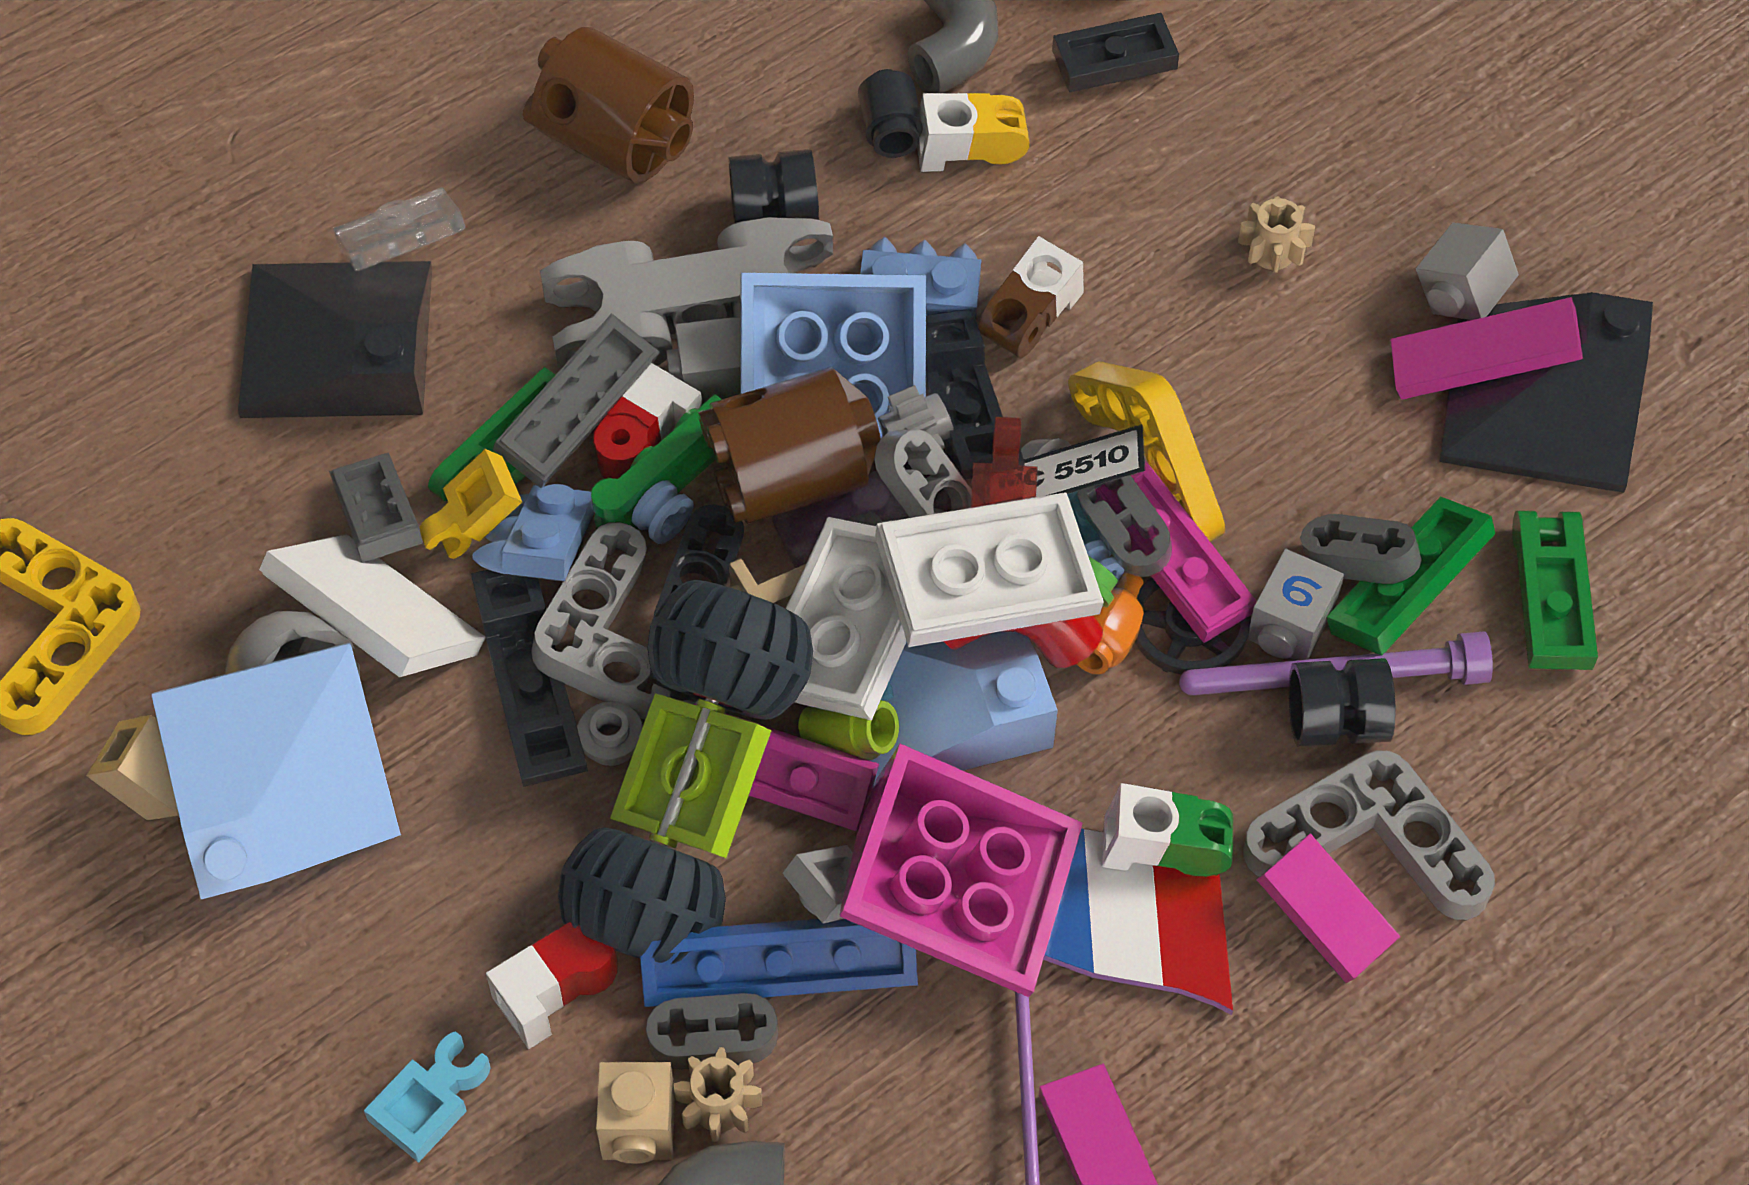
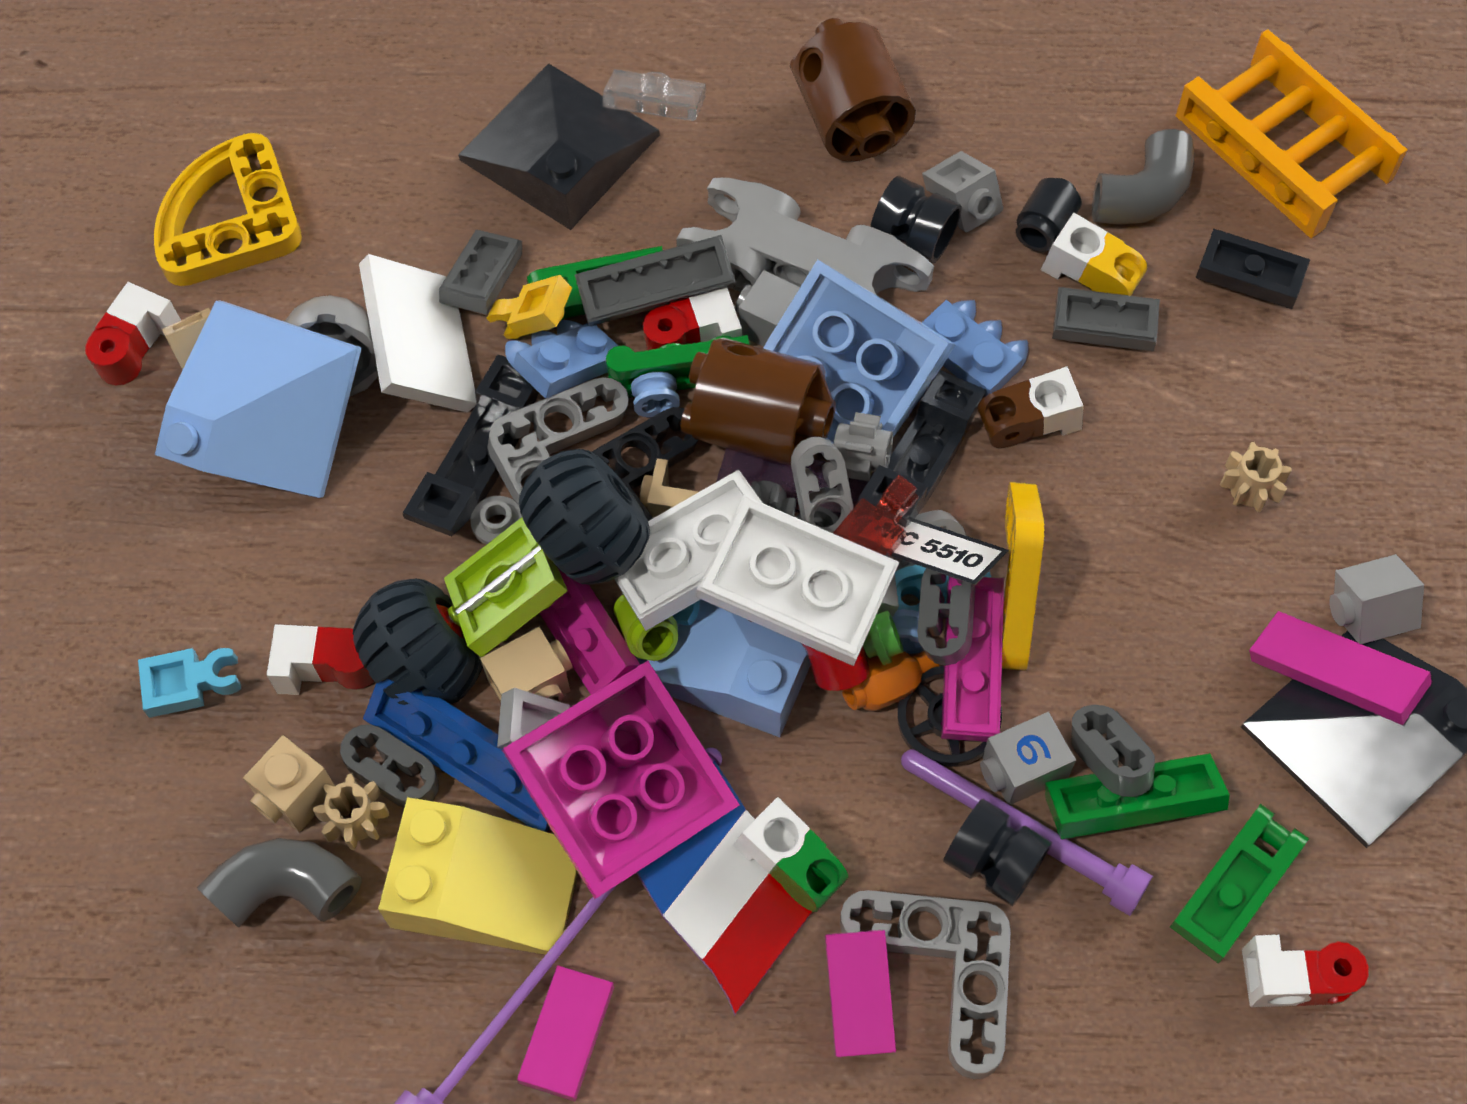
camera: 40 degrees right, 5 degrees up
(37, 807) = (128, 333): none -> leg
(767, 844) = (529, 665): none -> tan brick
(790, 127) = (968, 184): none -> light grey bracket
(895, 1065) = (477, 879): none -> light yellow slope
(1024, 177) = (1106, 319): none -> dark grey plate
(1668, 631) = (1301, 976): none -> leg

